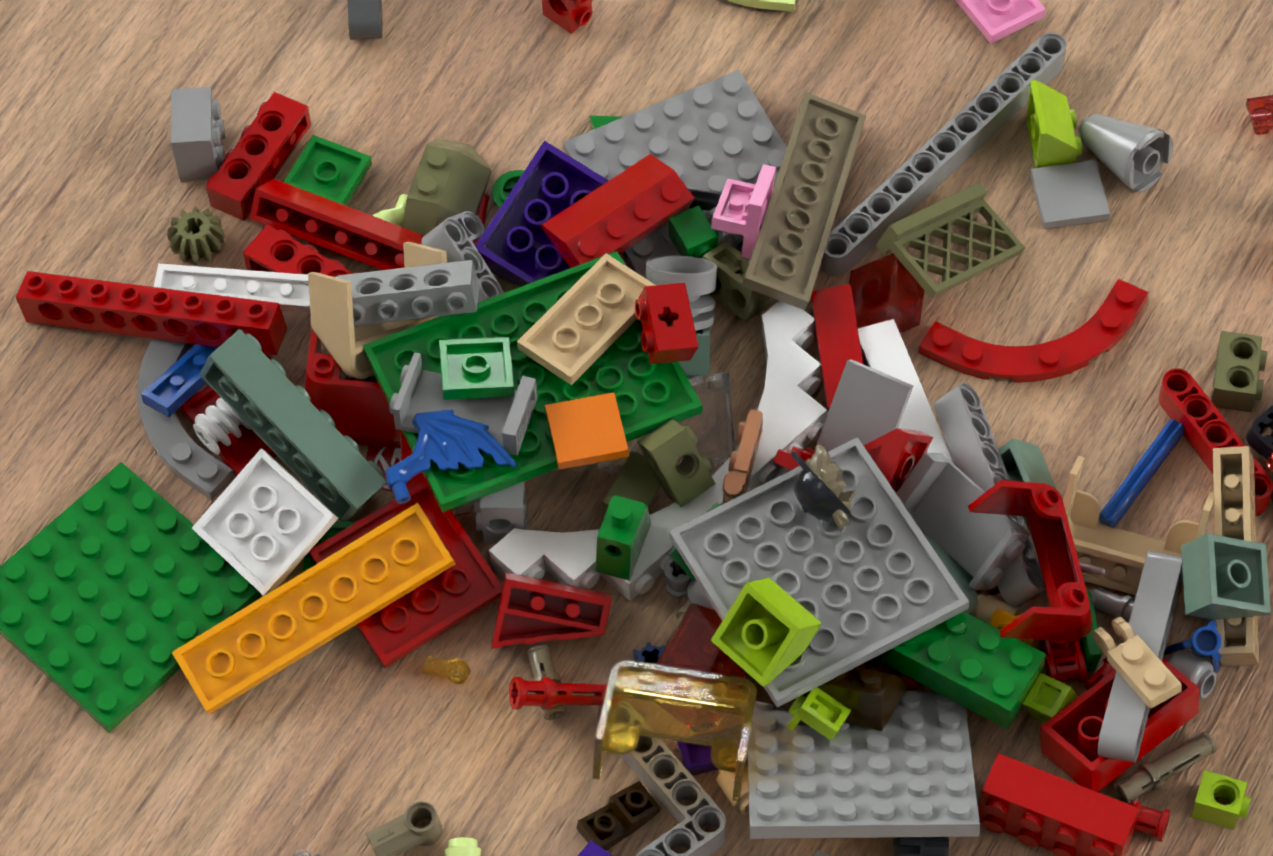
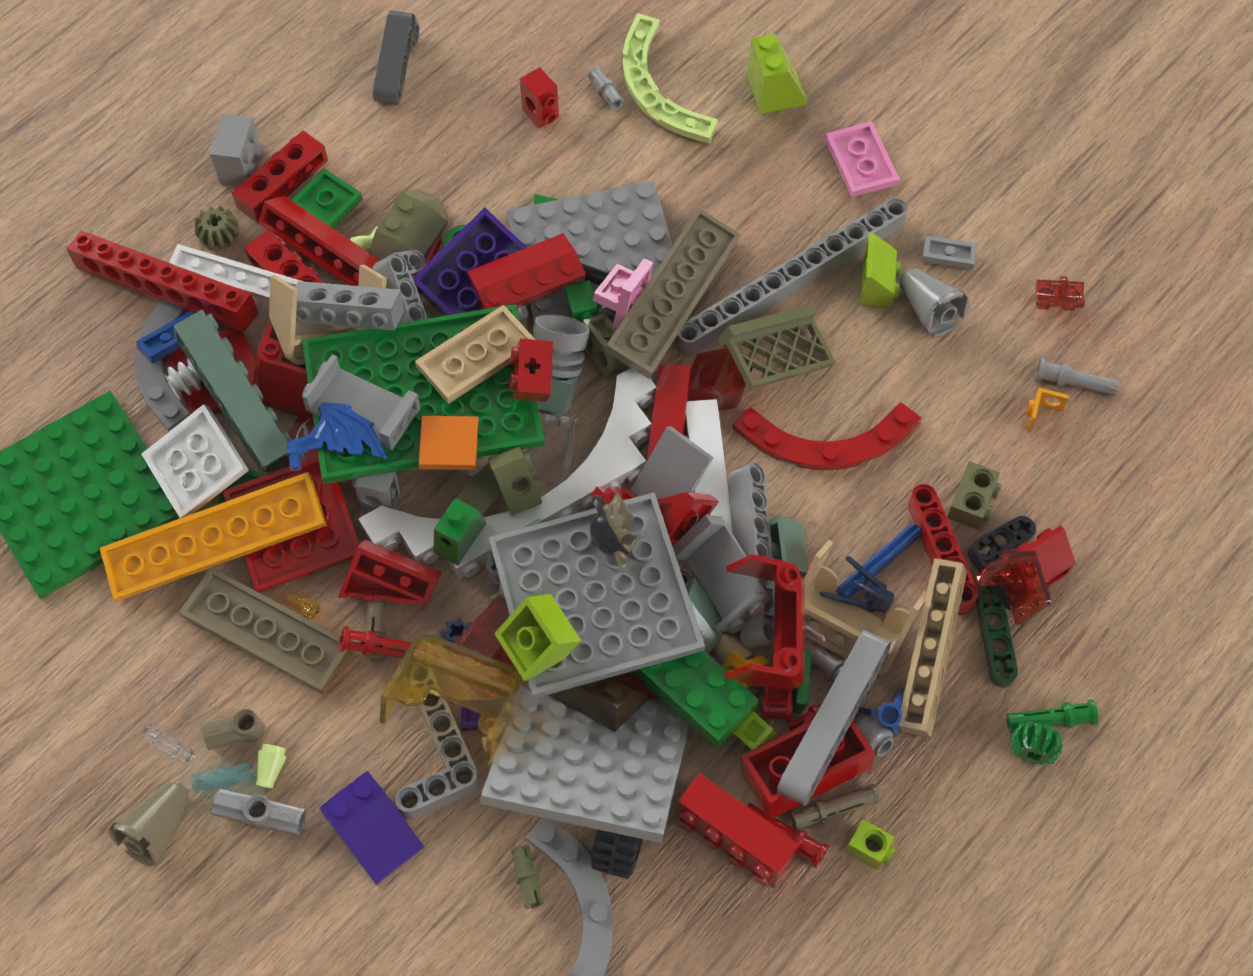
camera: 10 degrees right, 5 degrees up
(408, 707) = (265, 629): none -> dark tan plate
(476, 368) = (377, 375): plate -> none
(620, 818) = (399, 754): dark brown slope -> none
(742, 462) = (568, 489): nougat hinge -> none
(819, 712) = (569, 708): lime bracket -> none
(1069, 194) = (881, 327): light grey tile -> none
(1130, 87) = (949, 252): none -> light grey plate
(1137, 664) = (827, 726): tan hinge -> none
(1149, 511) = (876, 596): none -> dark blue plant
(1225, 578) = (917, 667): sand green slope -> none

